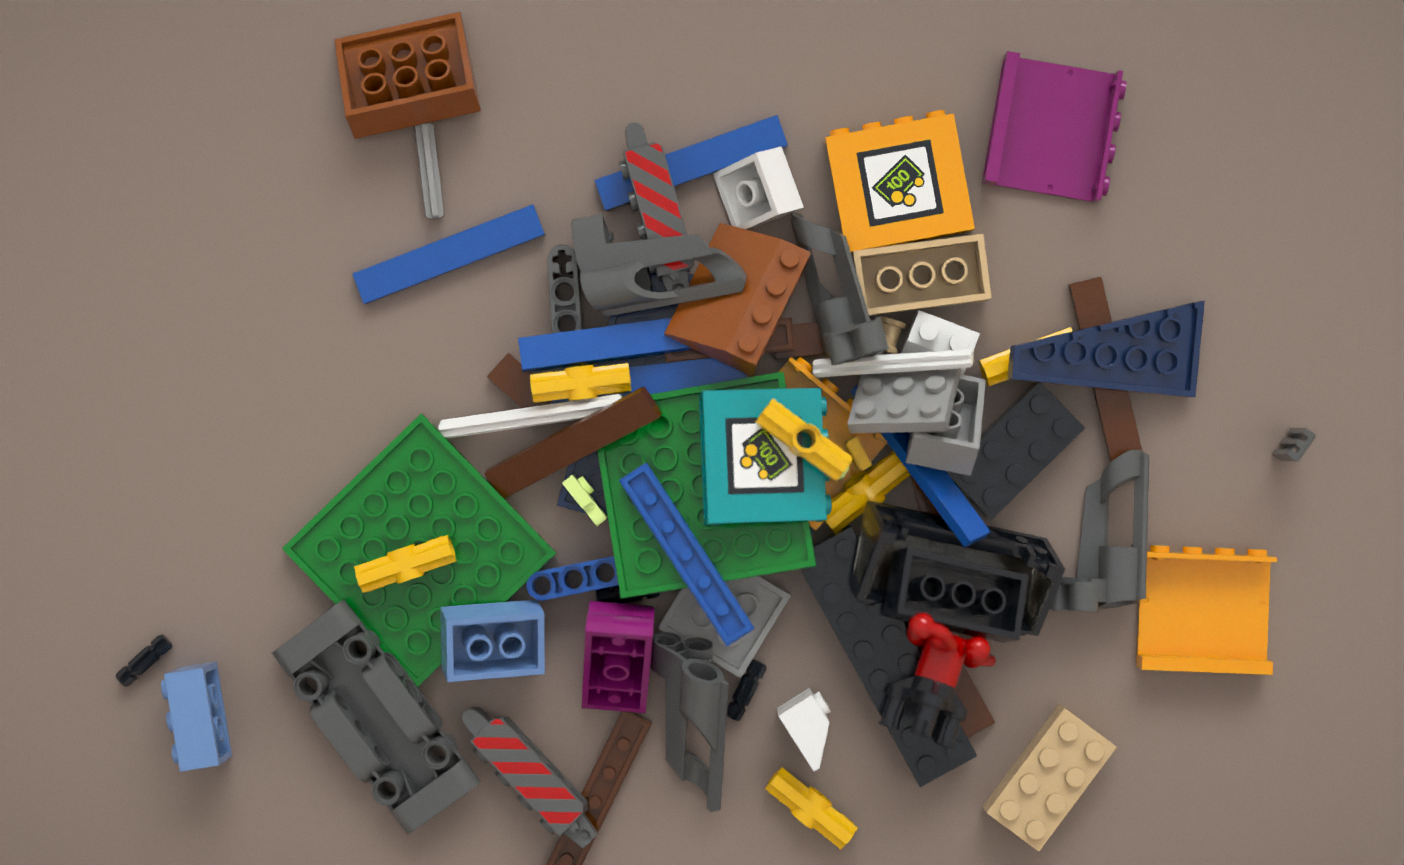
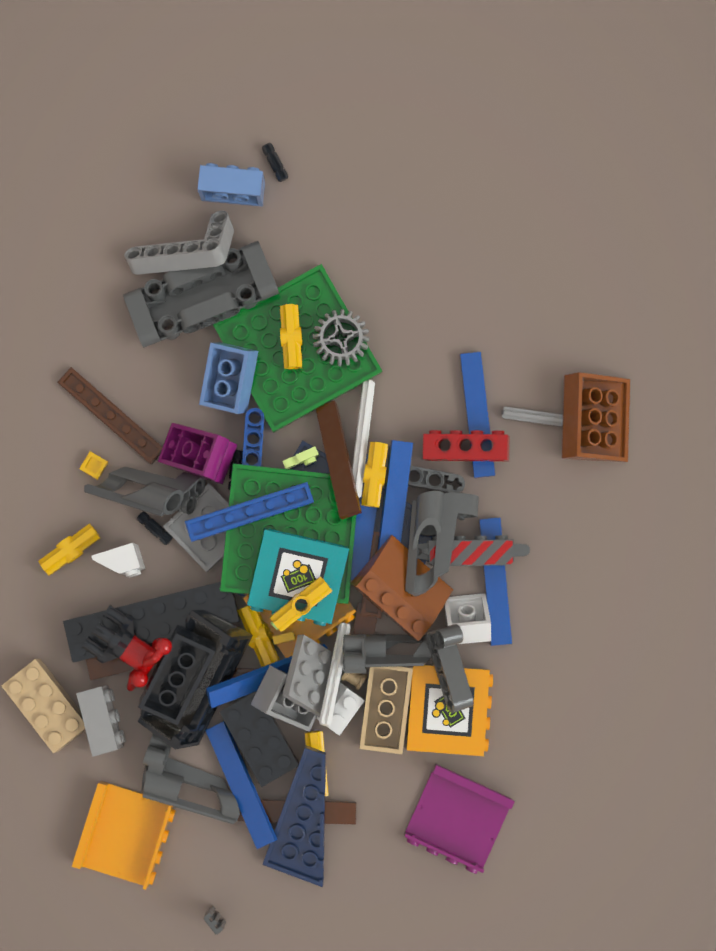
camera: 100 degrees right, 5 degrees down
(322, 754) = (185, 255): none -> light grey beam
(395, 501) = (349, 334): none -> light grey gear
(498, 206) = (498, 453): none -> red brick
(514, 382) = (386, 433): reddish brown tile -> none
(531, 775) = (138, 380): dark grey hinge -> none
(676, 806) = (93, 465): none -> yellow tile
(836, 197) = (449, 667): none -> dark grey beam
(1050, 690) = (101, 720): none -> light grey brick
(1089, 458) = (241, 785): none -> blue tile

